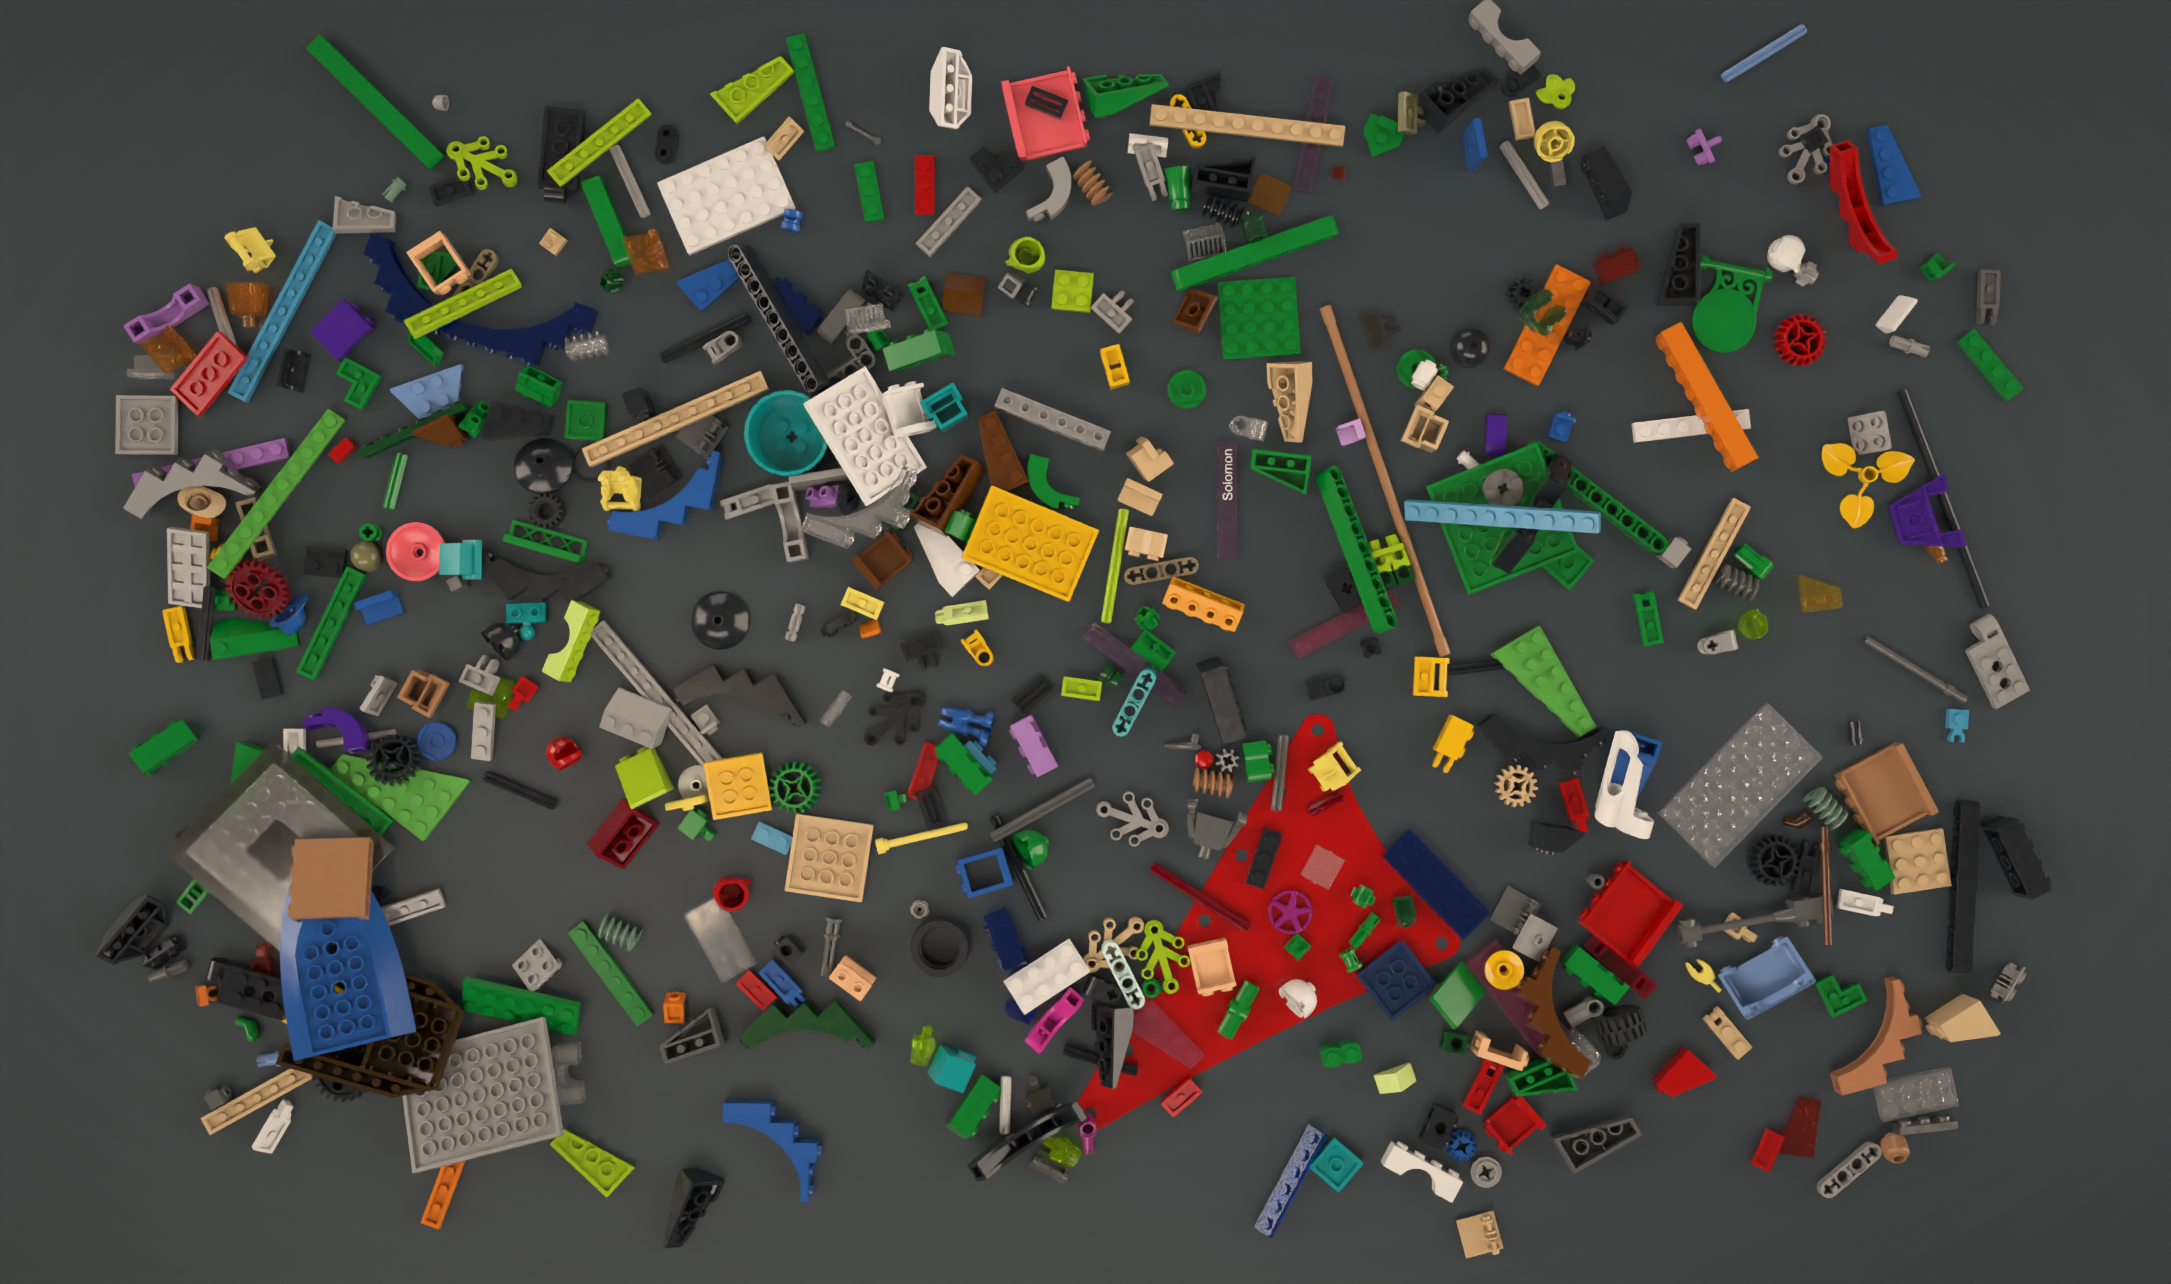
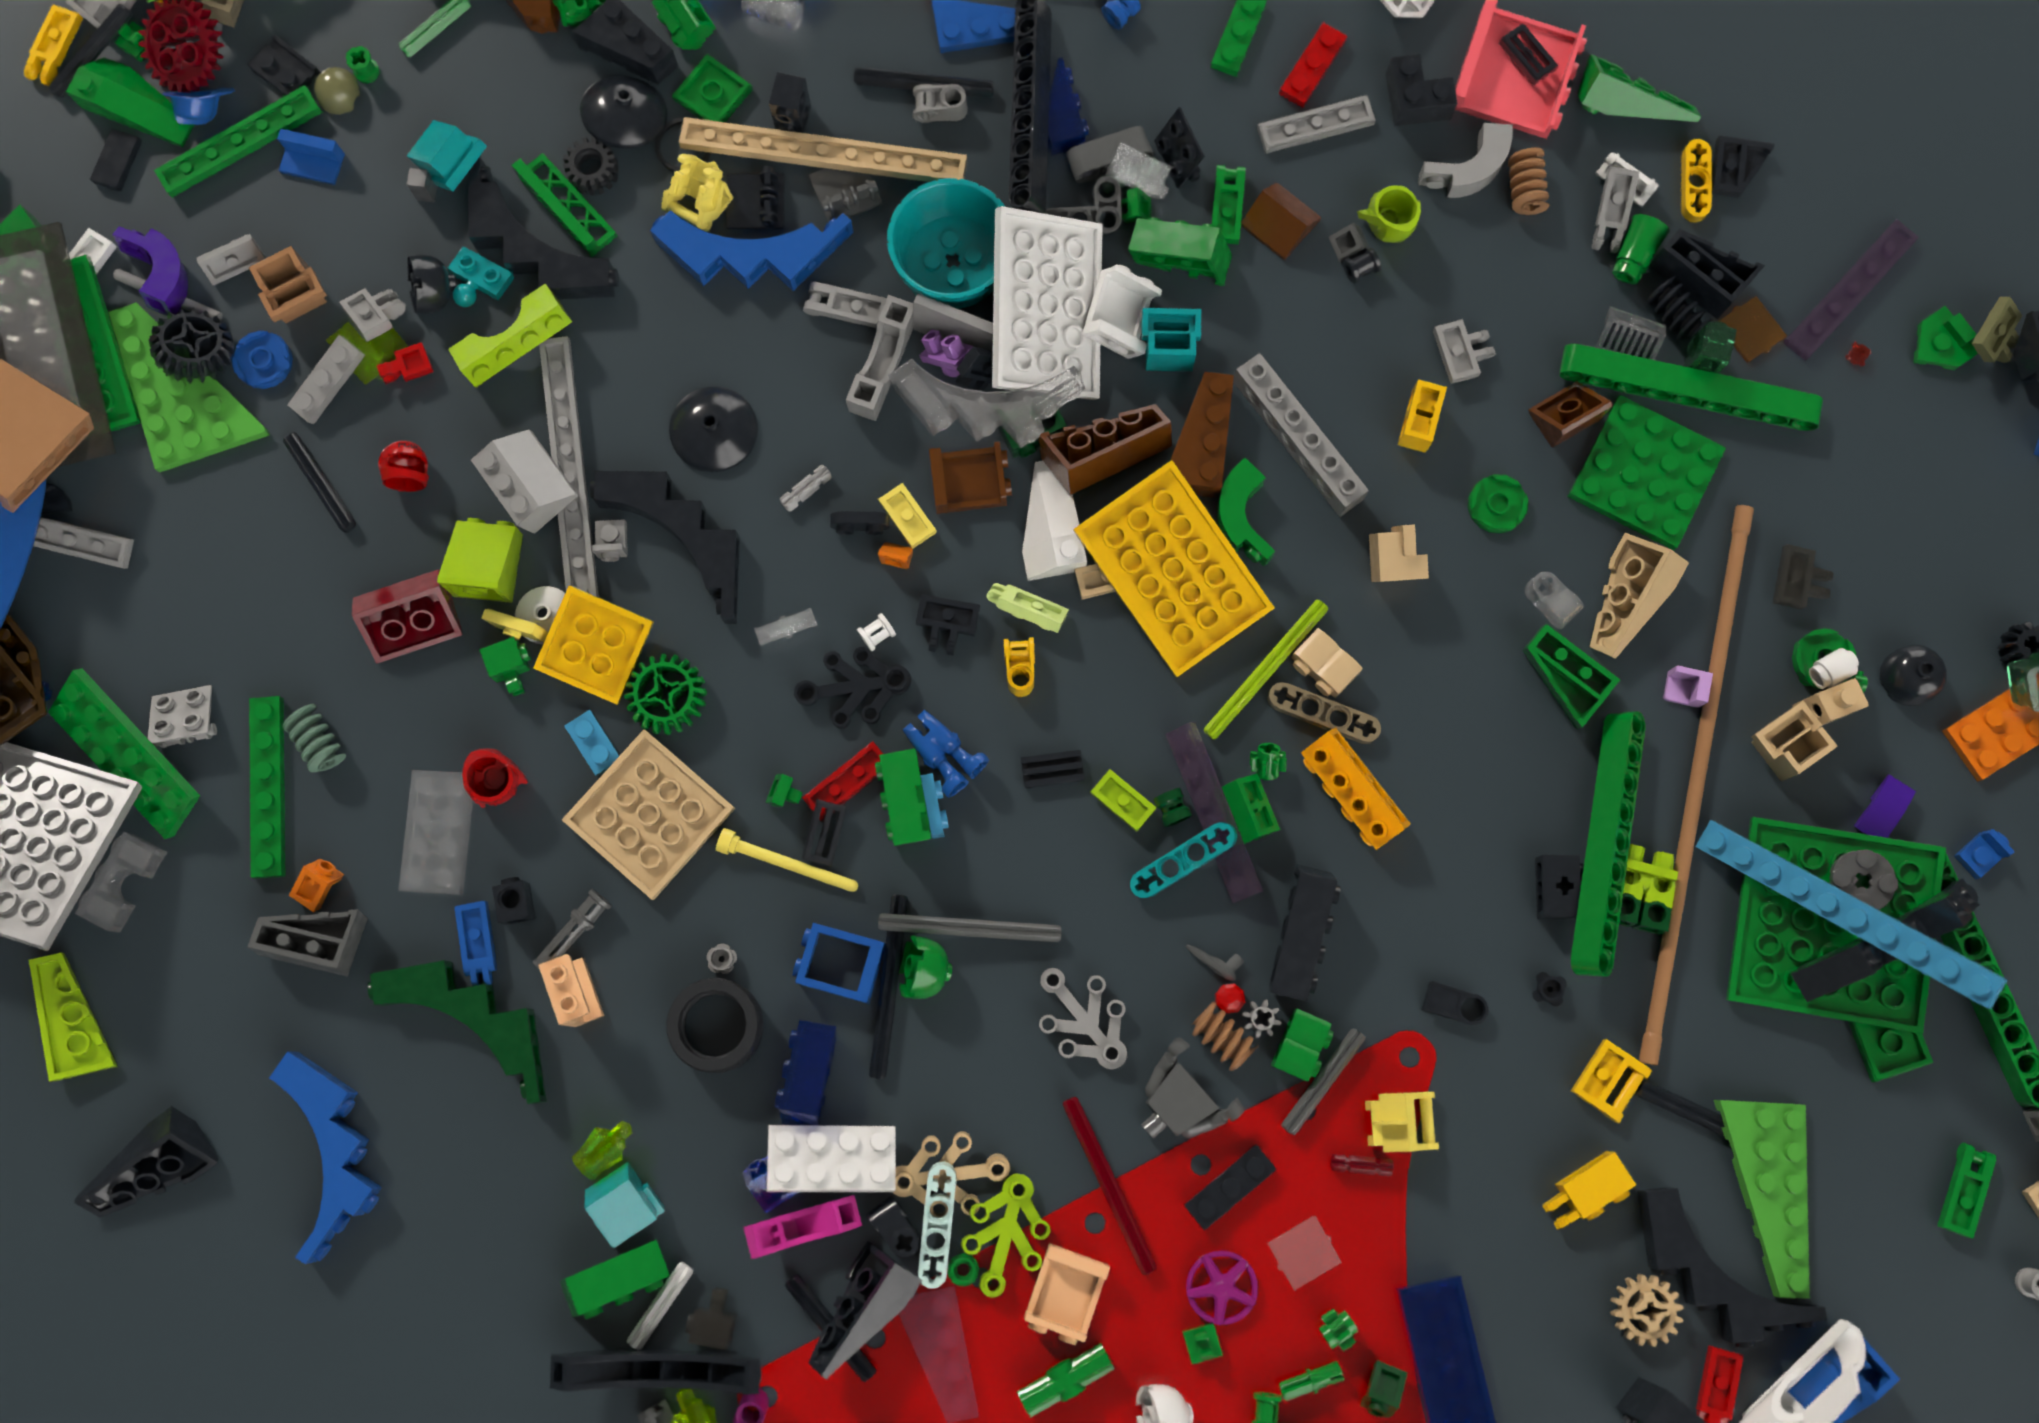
camera: 30 degrees right, 10 degrees down
(404, 547) = (390, 105): coral dish -> none
(756, 989) = (436, 928): red plate -> none
(961, 525) = (1097, 489): green brick -> none
(1033, 746) = (1011, 833): medium lavender wedge -> none
(1072, 291) = (1422, 296): lime plate -> none
(1139, 497) = (1354, 600): tan panel -> none
(1226, 499) = (1467, 675): clear purple tile -> none
(1247, 125) = (1774, 226): tan plate -> none
(1335, 628) = (1513, 933): clear pink plate -> none
(1467, 460) = (1826, 816): white pin -> none

